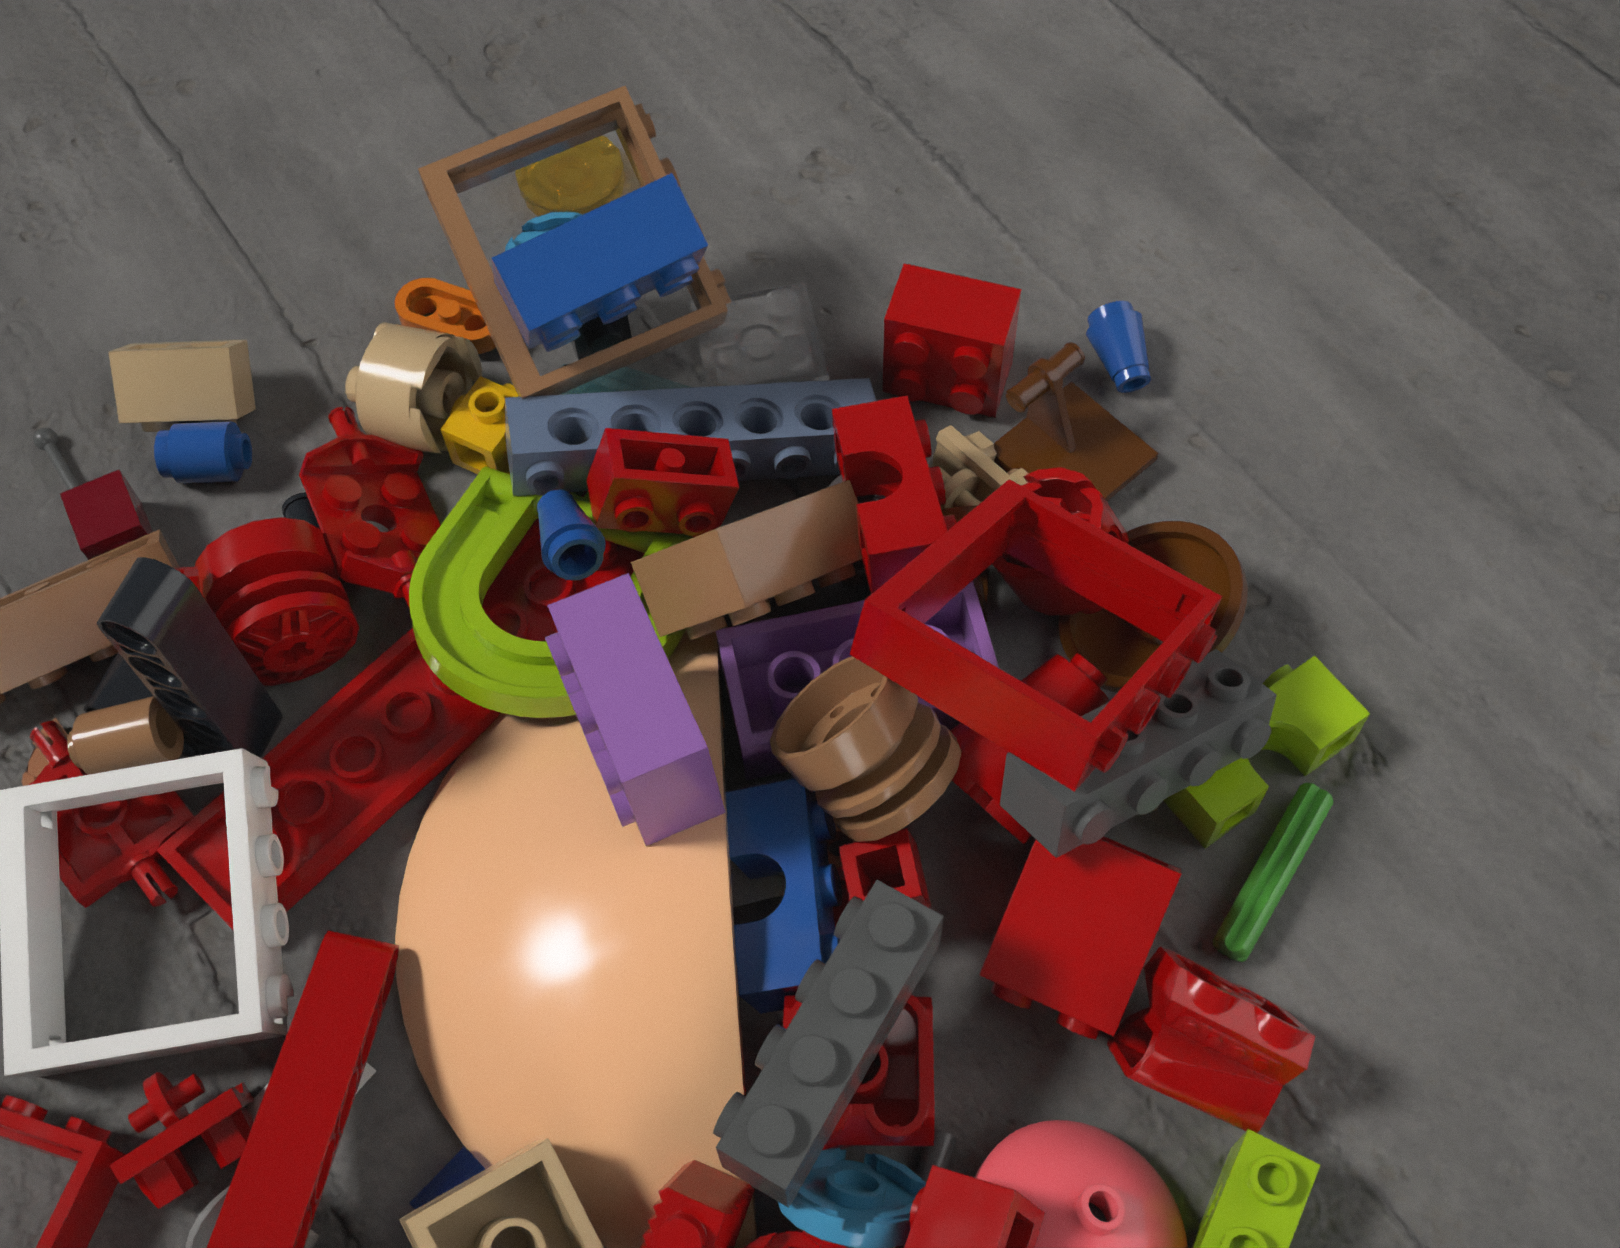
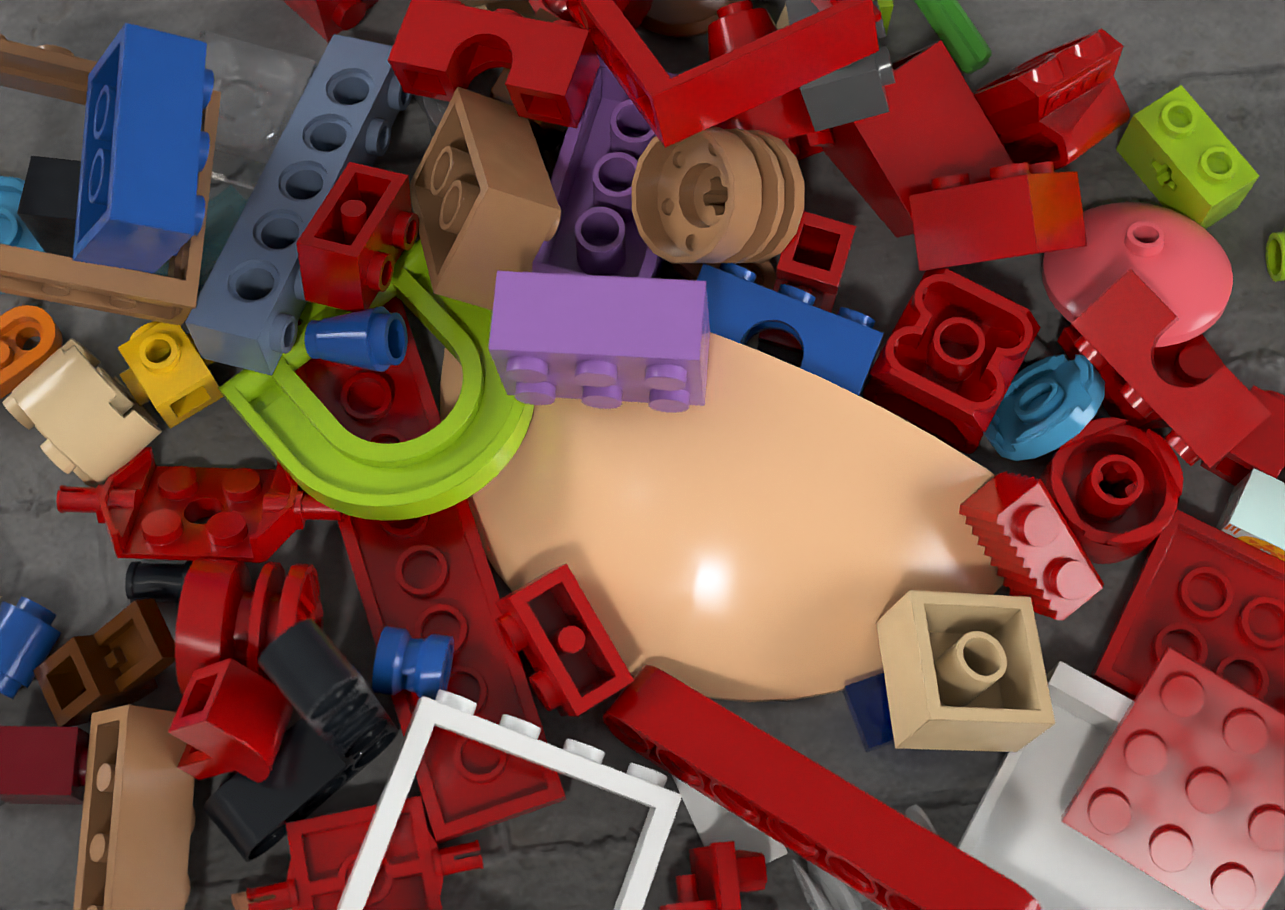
camera: 65 degrees left, 10 degrees up
(124, 737) = (325, 814): medium nougat brick -> none
(201, 512) = (109, 666): none -> reddish brown brick
(297, 739) = (412, 663): none -> blue wheel
(375, 856) = (563, 643): none -> red brick
(830, 1043) = (950, 340): dark grey brick -> none
(1025, 1041) = (1010, 216): none -> red brick

